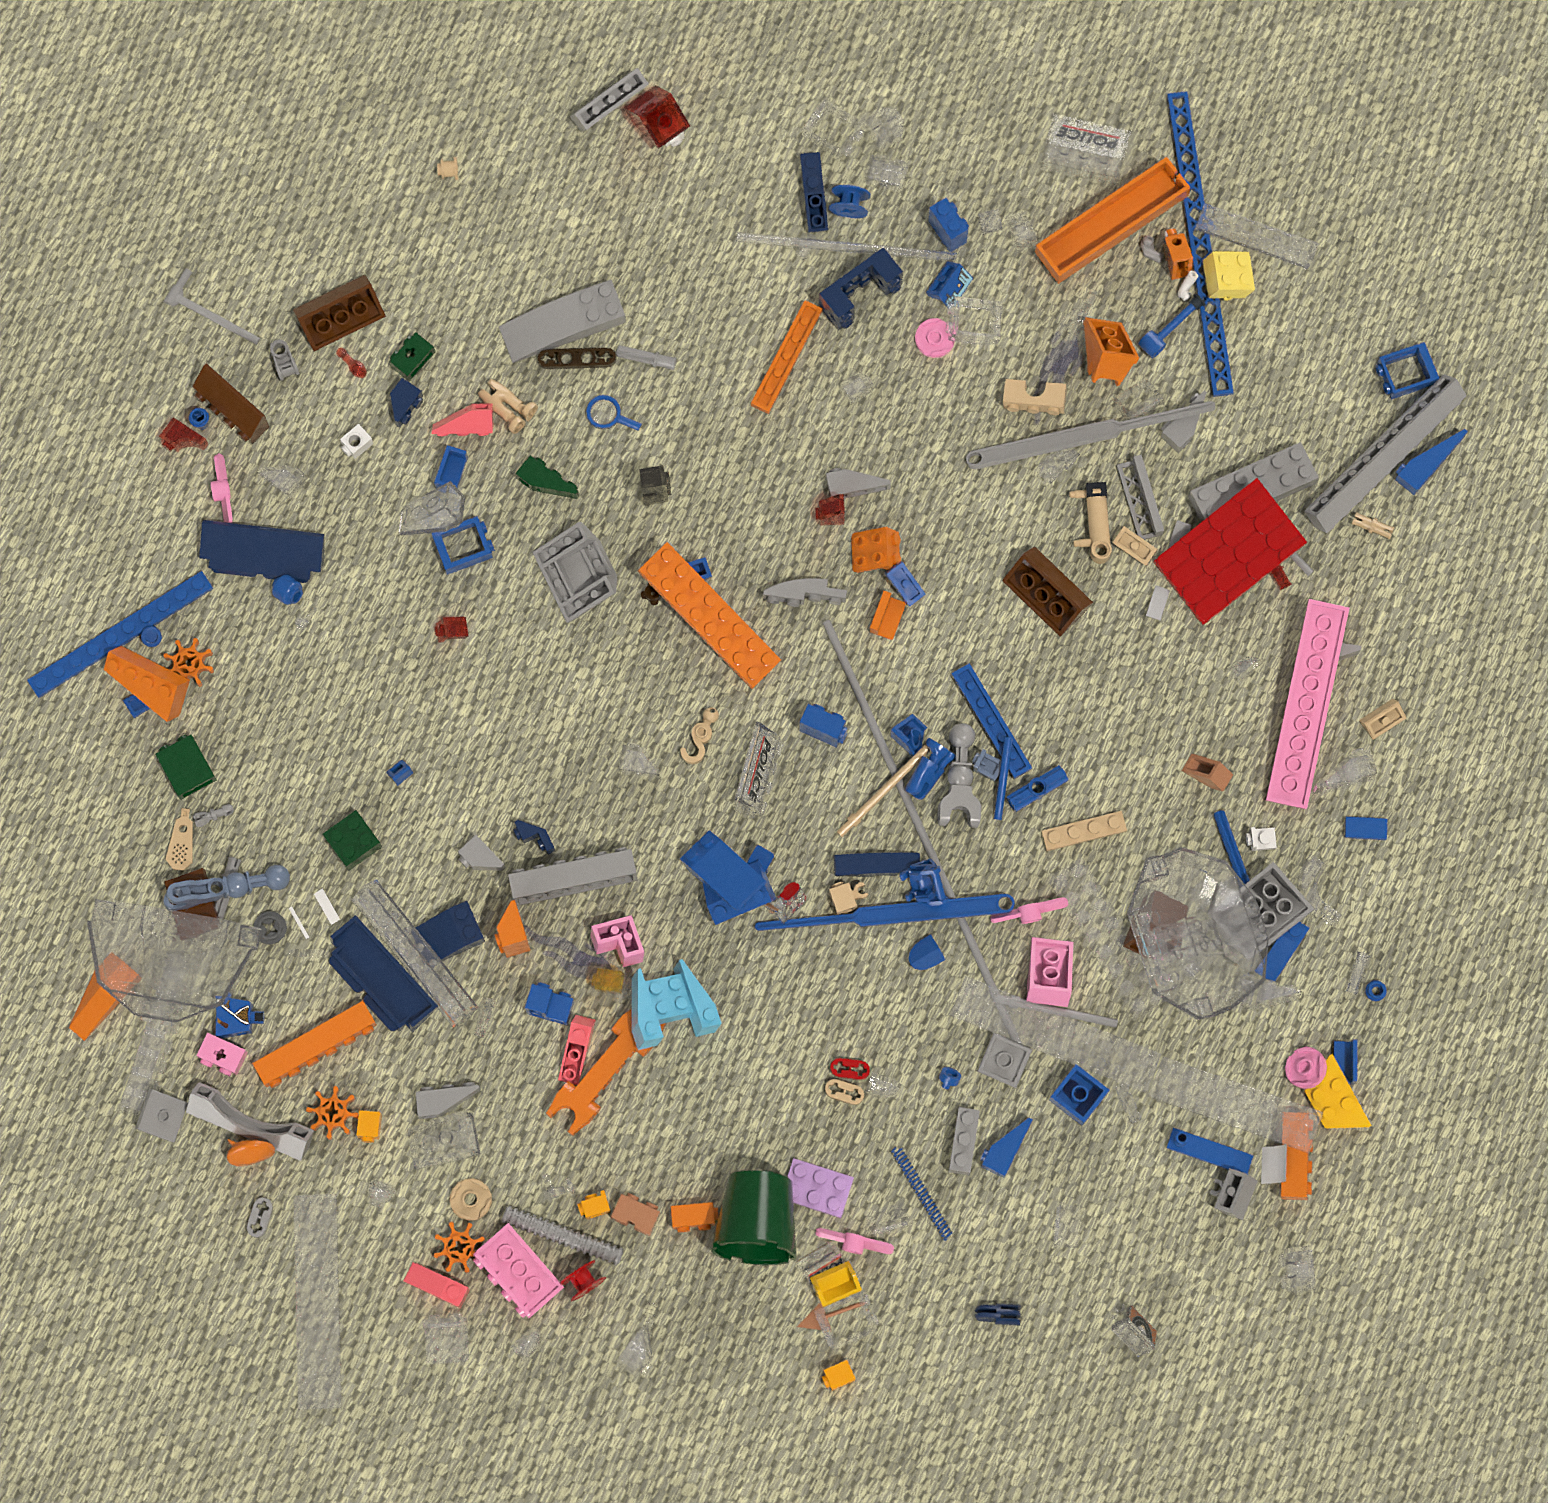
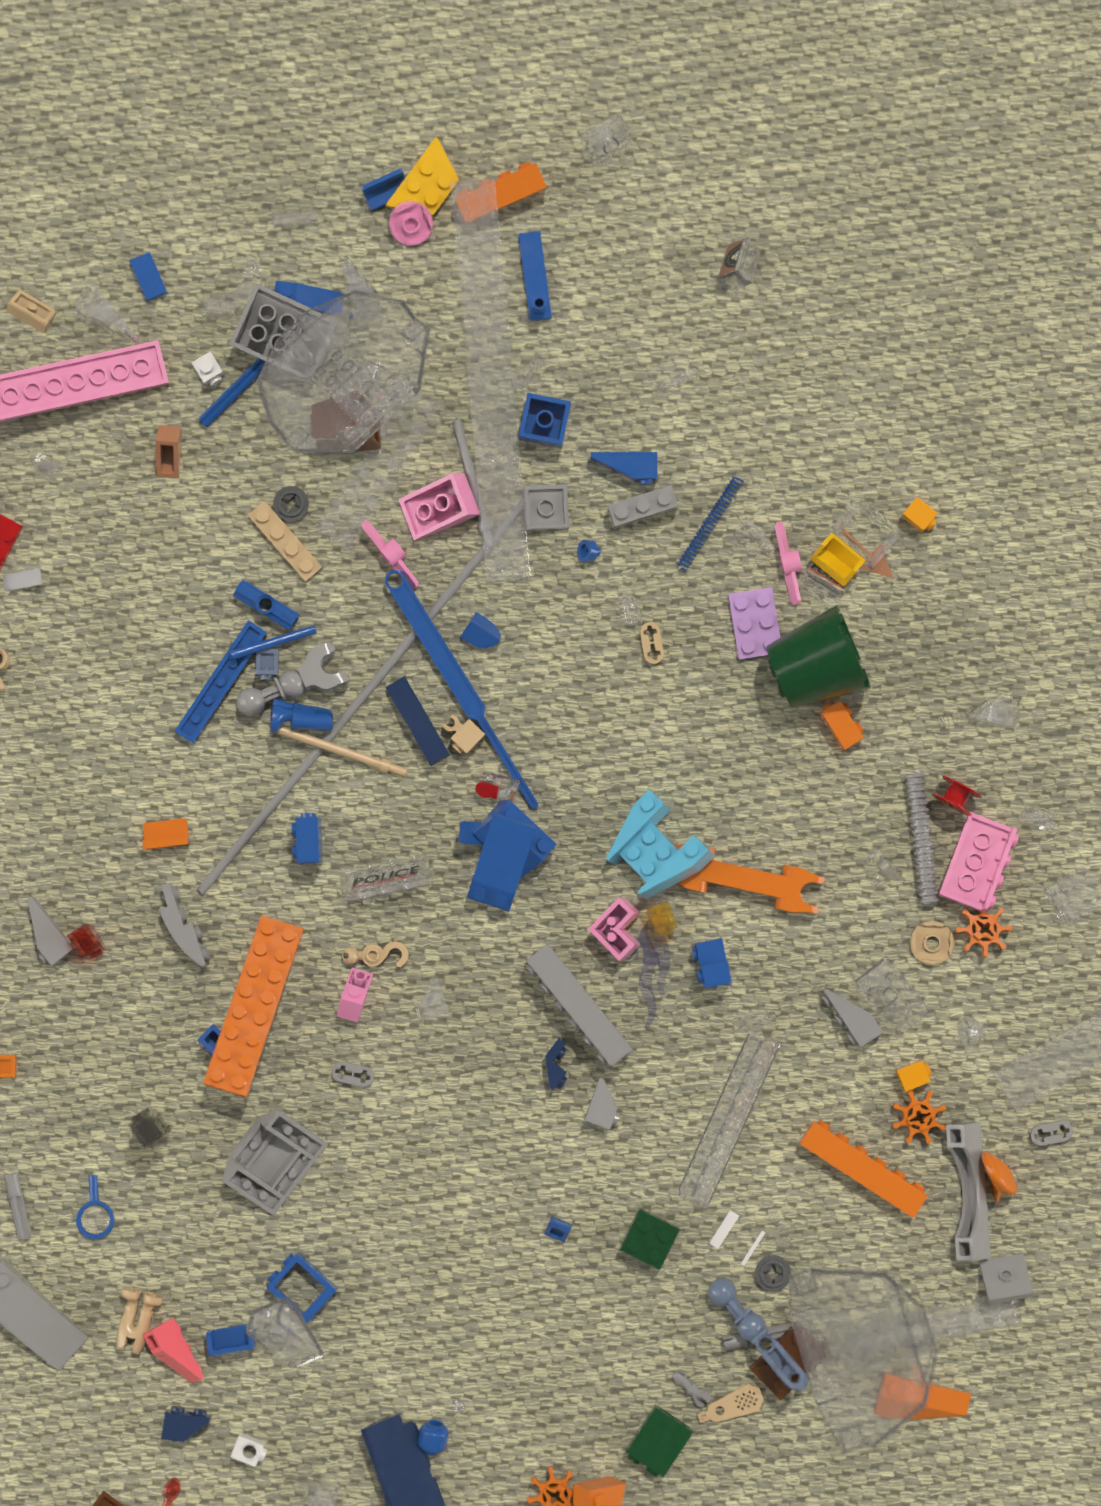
camera: 115 degrees left, 10 degrees up
(212, 1046) = (913, 1264): bright pink brick -> none
(236, 1018) = (876, 1254): blue torso -> none
(373, 969) = (763, 1152): dark blue slope -> none
(411, 366) = (144, 1437): dark green brick -> none
(437, 1285) = (1028, 932): coral slope -> none
(451, 628) = (391, 1253): clear red bracket -> none
(452, 931) = (689, 1095): dark blue slope -> none
(511, 933) = (663, 1034): orange slope -> none
(541, 479) = (195, 1246): dark green slope -> none
(576, 355) = (49, 1276): dark brown beam -> none
(576, 1049) = (740, 916): coral slope -> none
(594, 1205) = (879, 822): light orange brick -> none
(617, 673) = (354, 1068): none -> light grey beam
(639, 1214) = (866, 779): nougat brick -> none
(647, 595) = (260, 1080): dark brown plate -> none
(677, 702) = (354, 995): none -> bright pink slope
(849, 1063) = (632, 647): red beam -> none
(875, 549) = (105, 878): orange bracket -> none
(905, 583) = (125, 832): plate -> none
(909, 734) = (273, 753): blue slope -> none
(925, 883) = (414, 664): blue piece -> none
(999, 1314) = (786, 396): dark blue arm -> none
(1047, 591) = (63, 691): reddish brown slope -> none
(1113, 841) = (288, 493): none -> dark grey gear
(1235, 1193) = (564, 231): light grey brick -> none
(1273, 1164) = (518, 209): white sticker -> none
(1378, 984) = (302, 187): blue plate -> none

